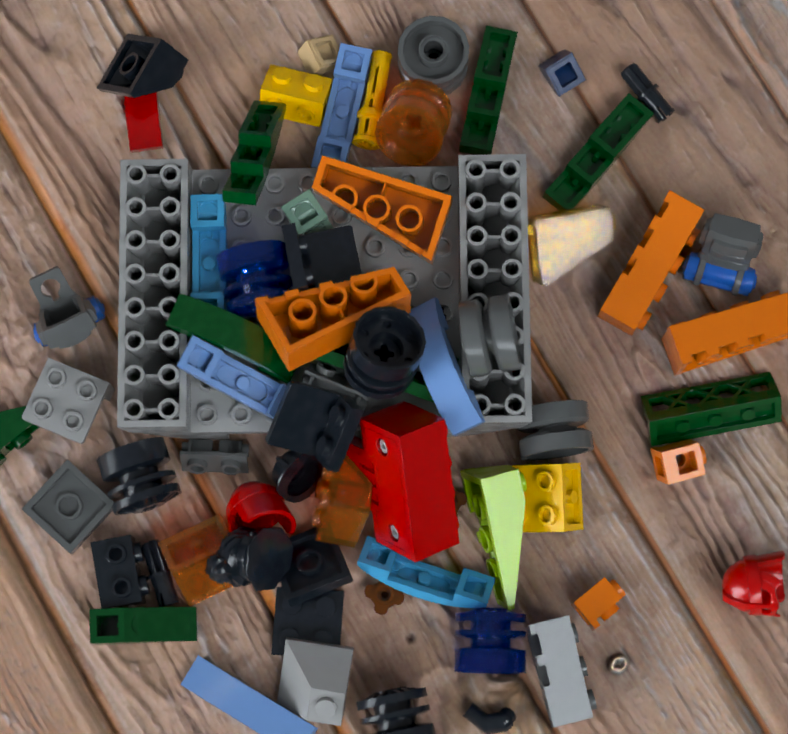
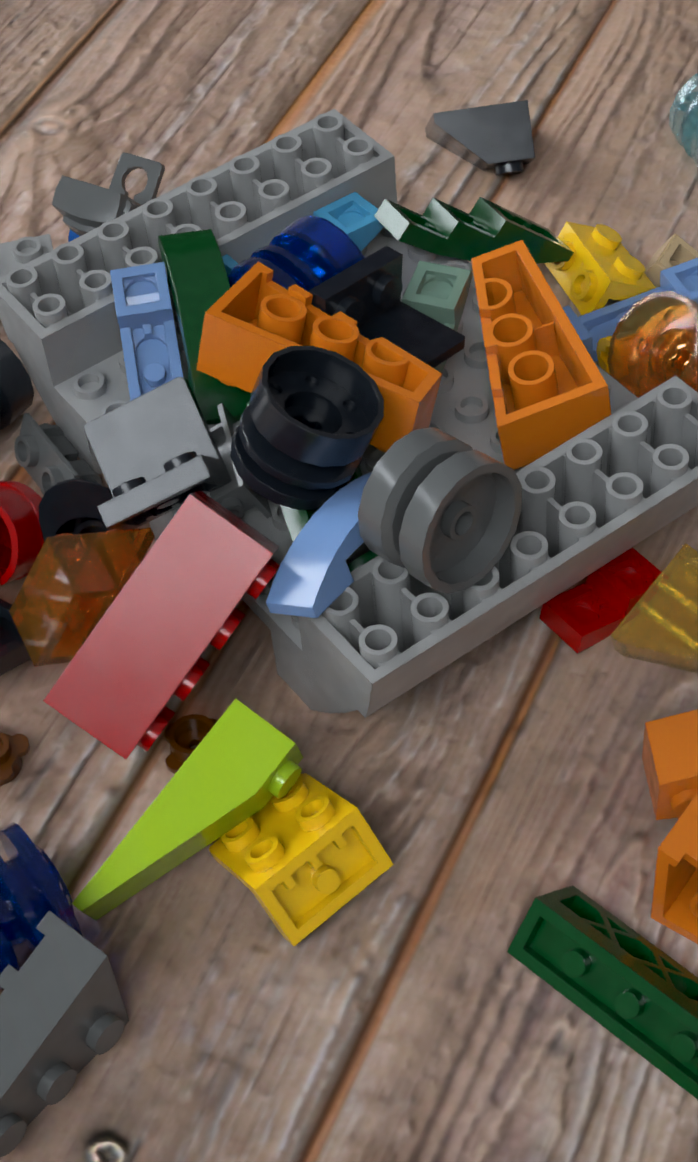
camera: 55 degrees right, 30 degrees down
(143, 123) = (429, 170): red slope -> none
(424, 580) = (48, 775): dark azure slope -> none
(556, 431) = (408, 777): dark grey wheel -> none
(599, 602) = (183, 1035): orange brick -> none
(691, 464) = (499, 977): orange brick -> none

